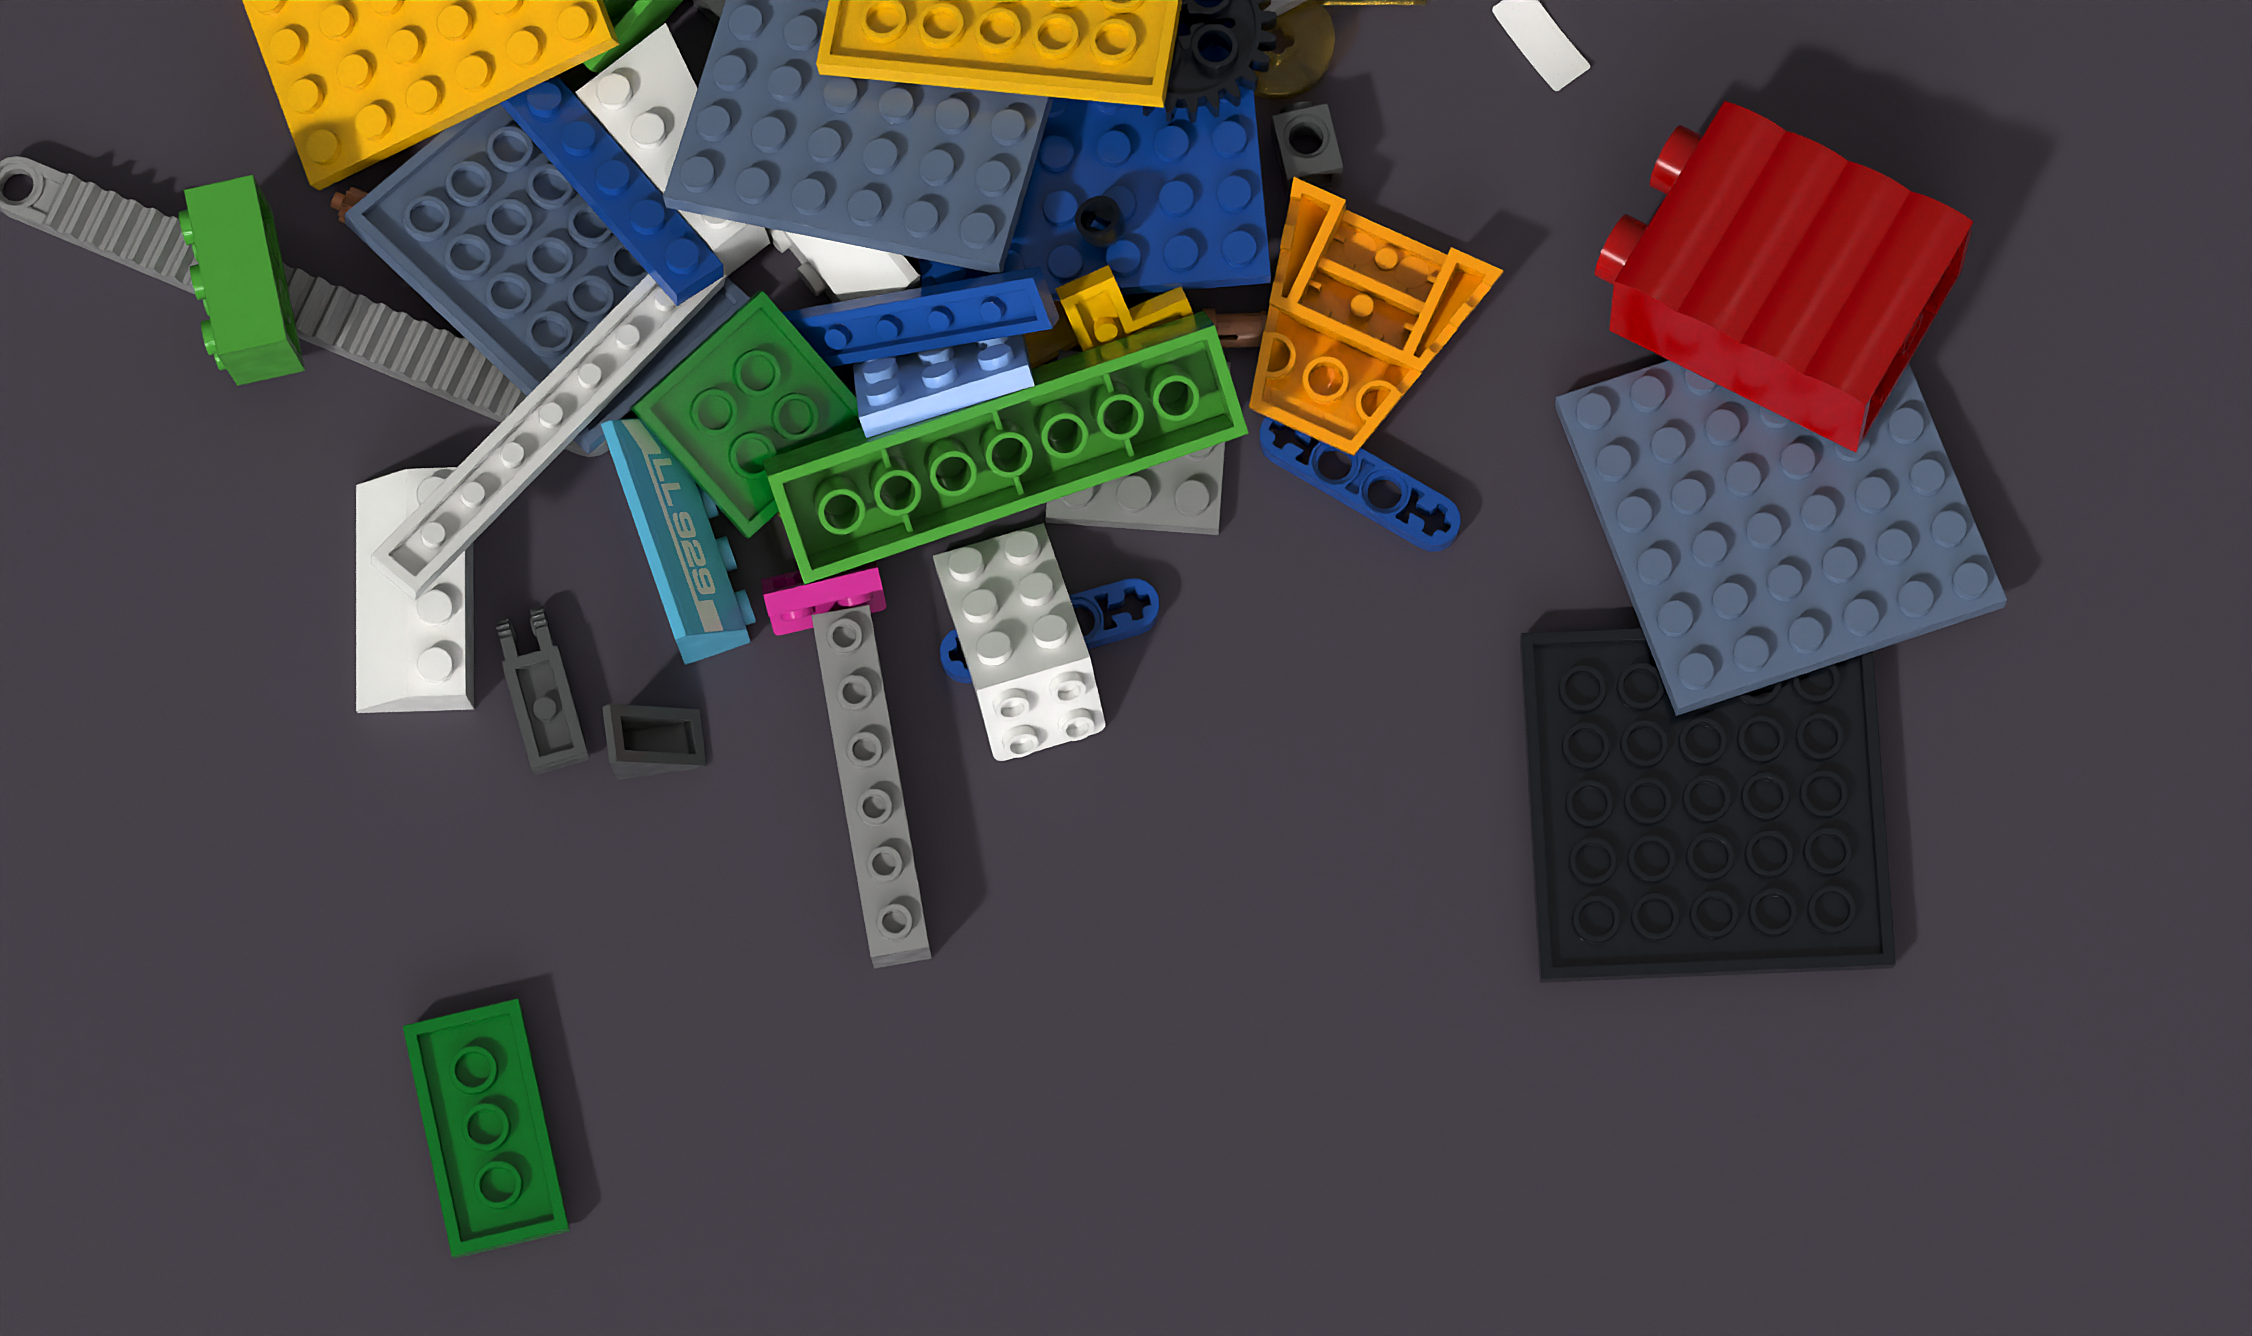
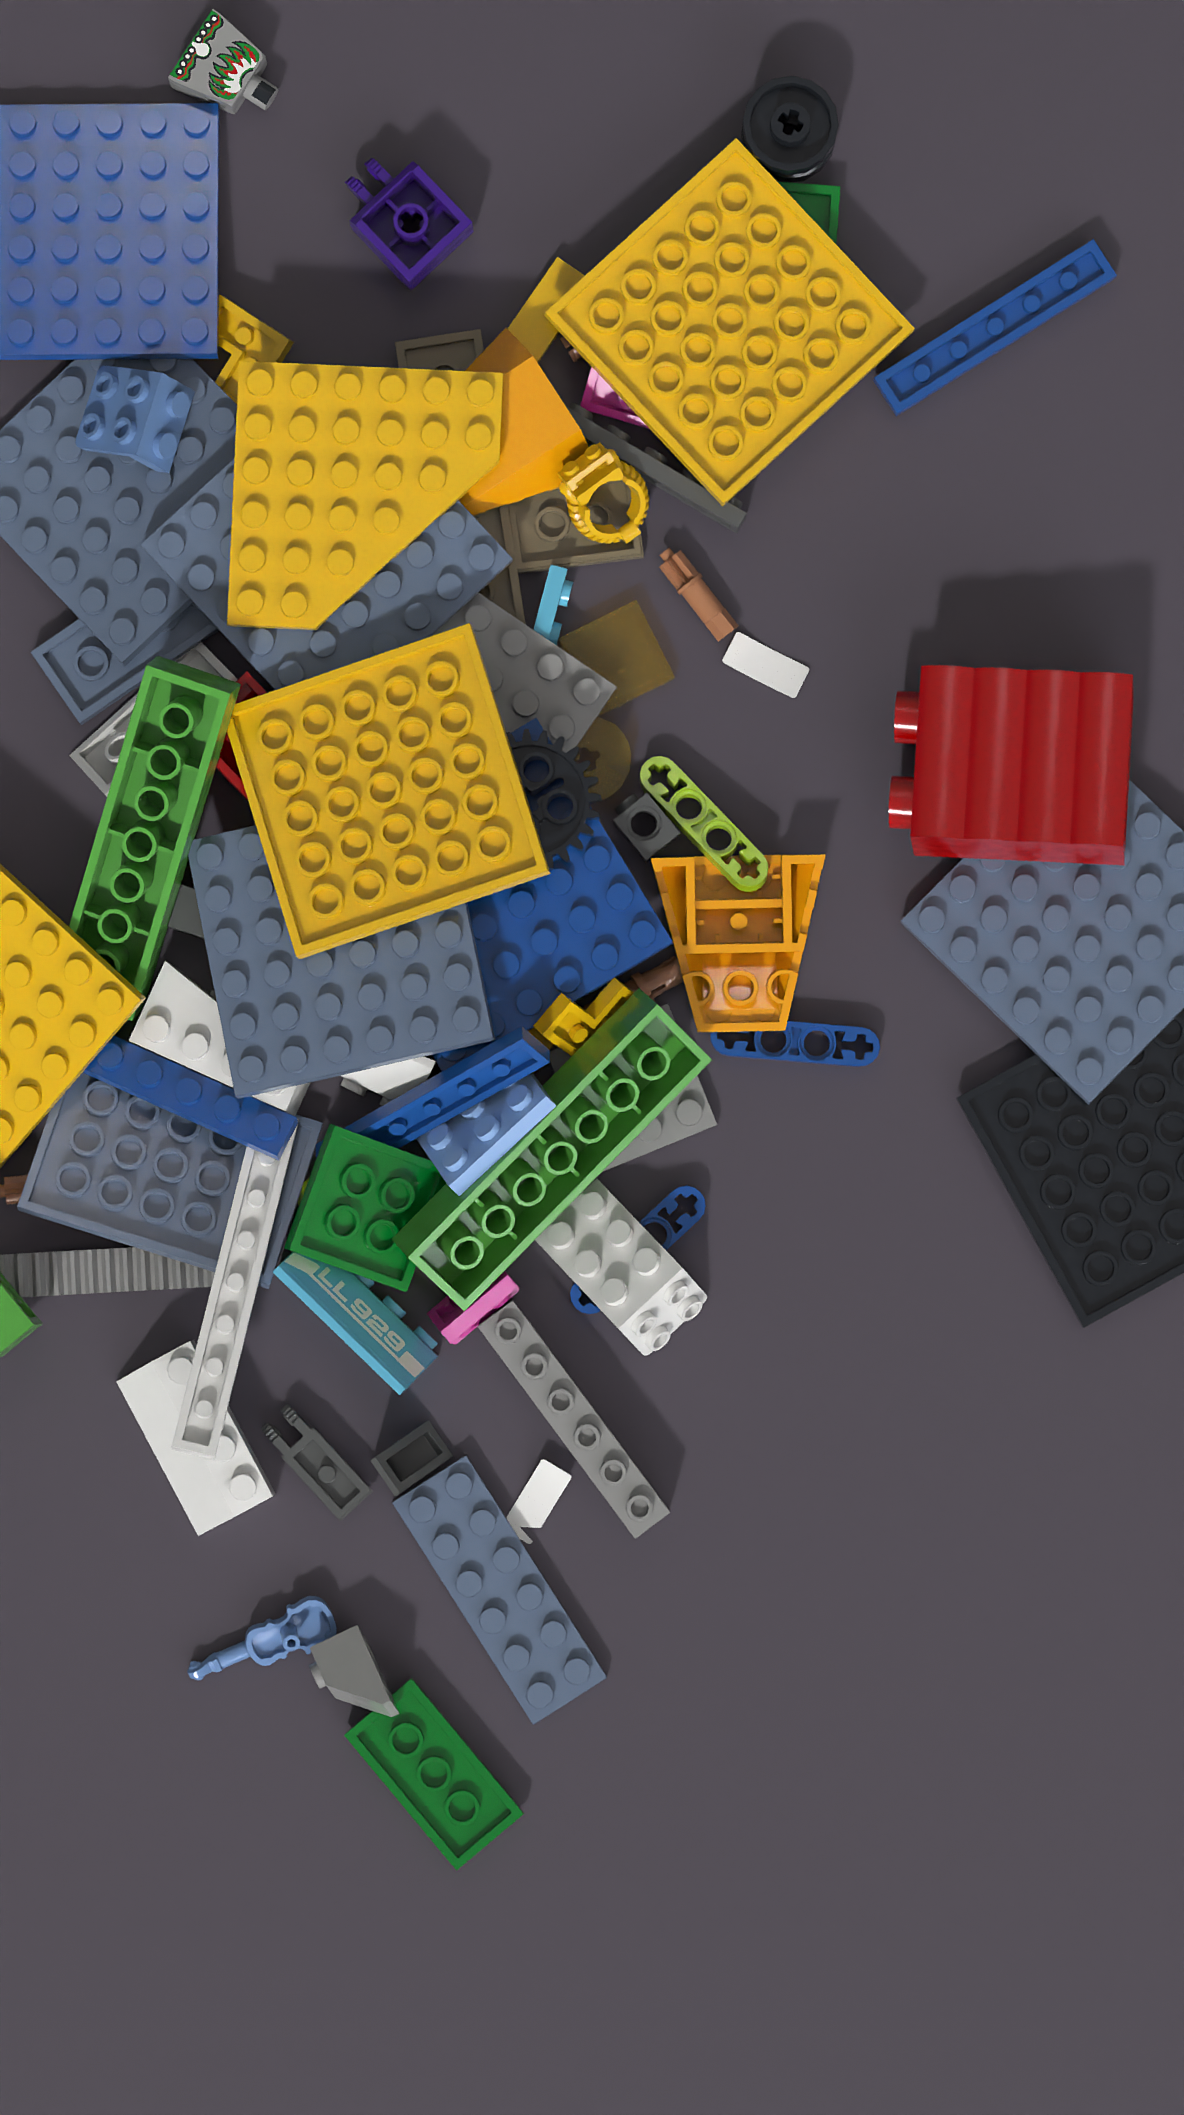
camera: 30 degrees left, 10 degrees up
(427, 877) = (300, 1628): none -> medium blue piece
(451, 953) = (352, 1672): none -> light grey slope
(679, 950) = (499, 1589): none -> sand blue plate
(779, 866) = (538, 1498): none -> white sticker
(1107, 213) = (541, 956): black hinge -> none
(1373, 177) = (708, 820): none -> lime beam

